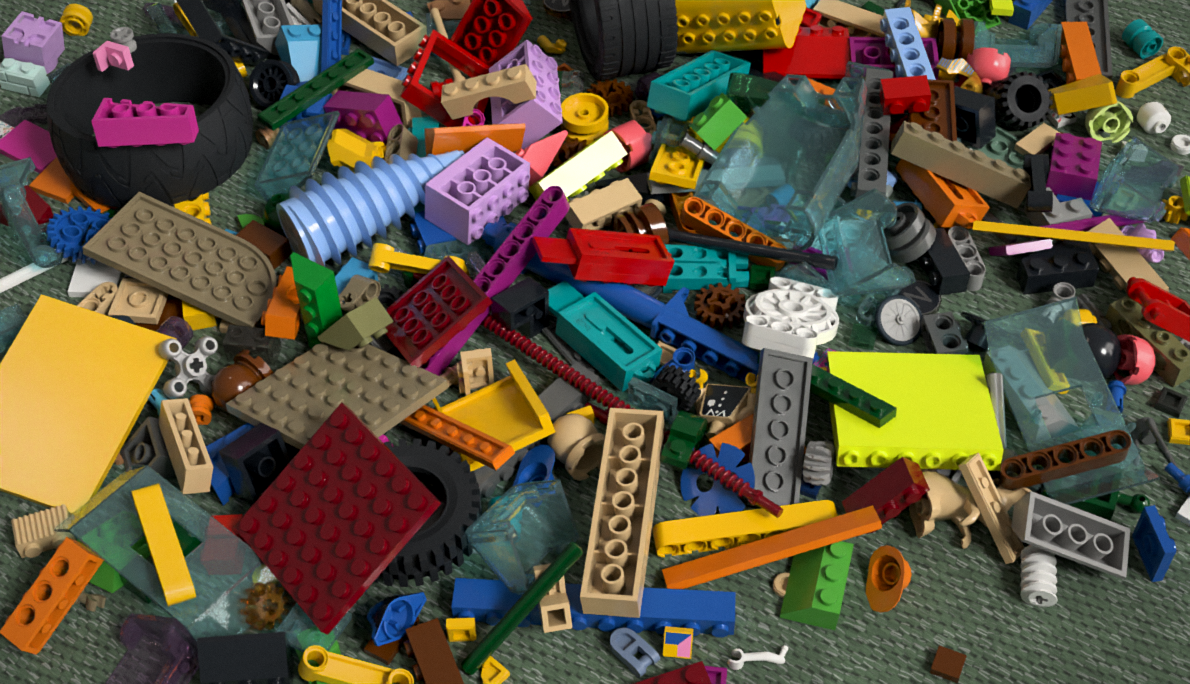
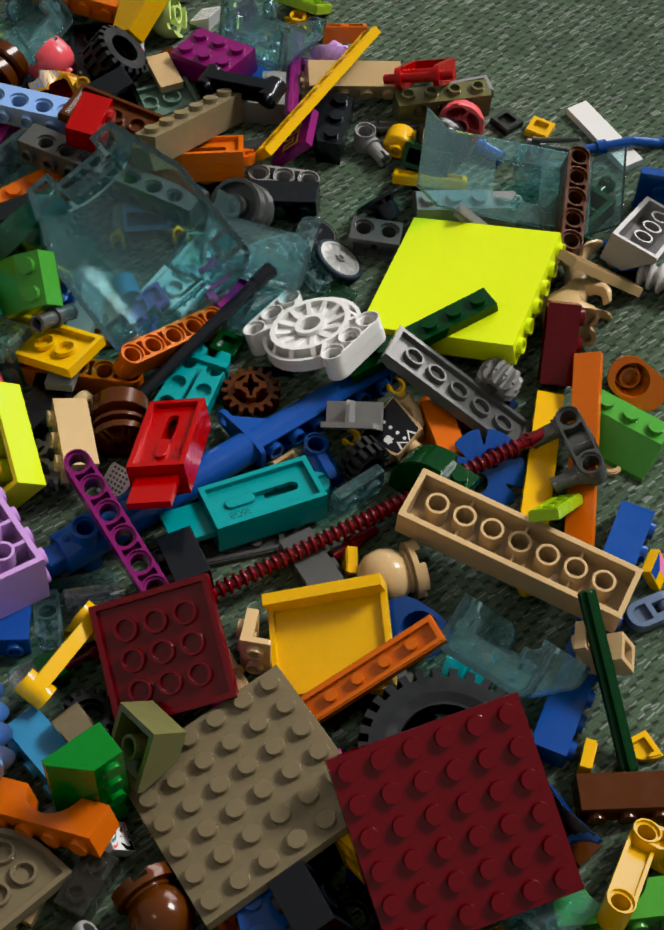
camera: 75 degrees left, 5 degrees up
(292, 348) = (121, 842): none -> tile
(678, 523) = (555, 507): none -> lime tile
(714, 368) = (354, 415): none -> light grey panel
(763, 536) = (581, 447): none -> dark grey piece

